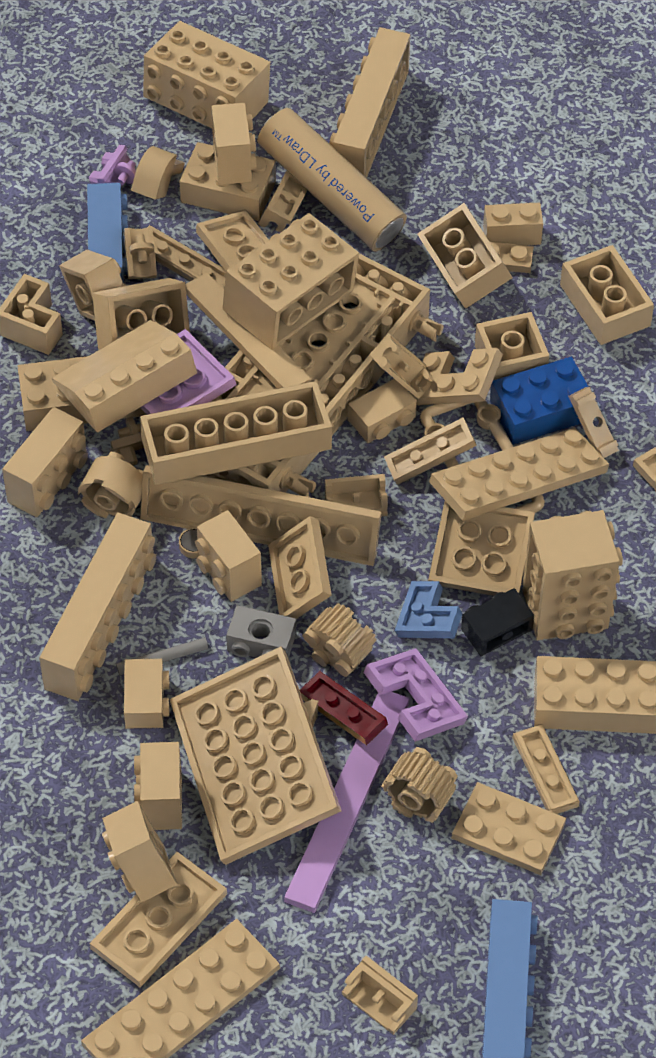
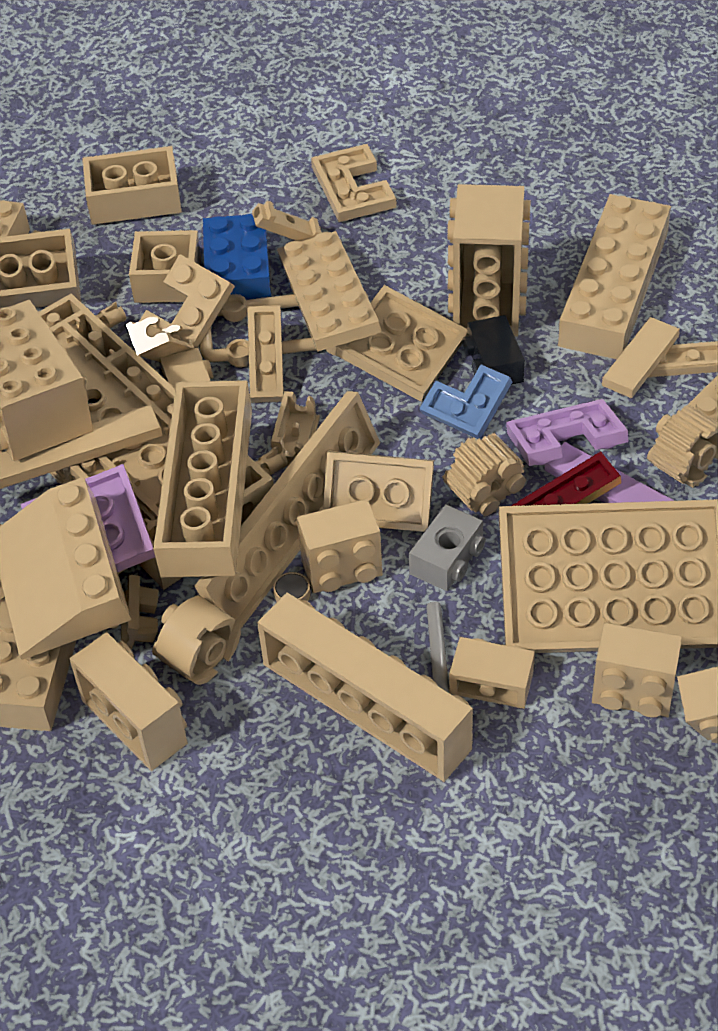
camera: 70 degrees left, 5 degrees down
(527, 735) = (640, 357): none -> tan tile

